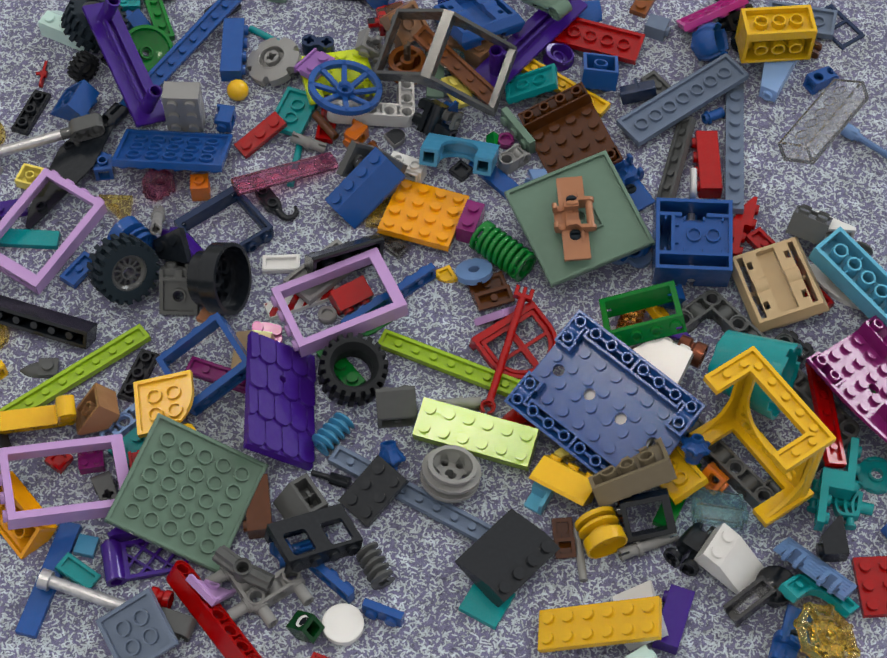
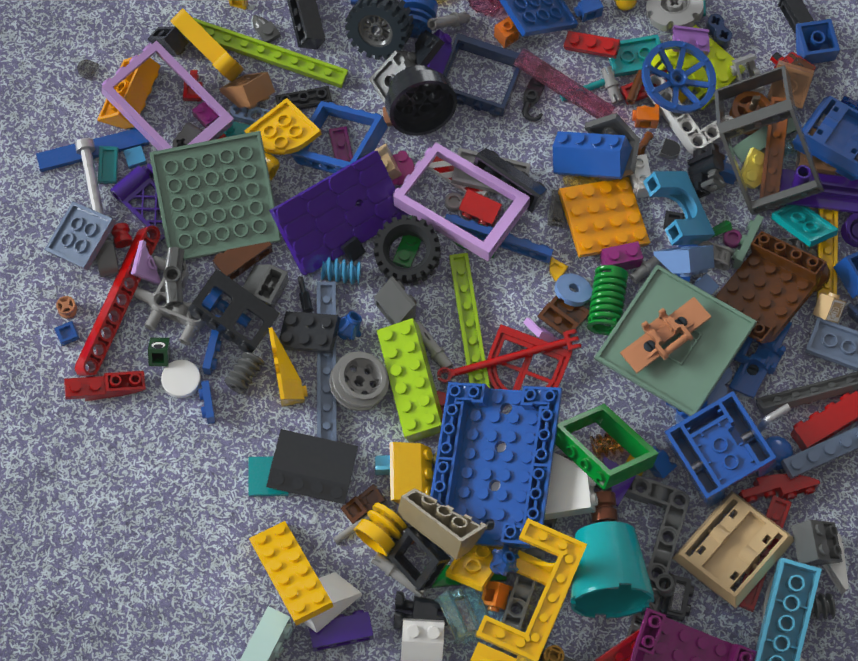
camera: 55 degrees right, 10 degrees up
(280, 263) = (478, 136): white tile -> none
(316, 414) = (353, 249): none -> black tile
(408, 533) = (288, 380): none -> yellow wedge
(490, 208) = (644, 270): none -> light grey pin
(511, 171) = (687, 259): none -> medium blue slope
(614, 107) = (829, 307): none -> tan brick

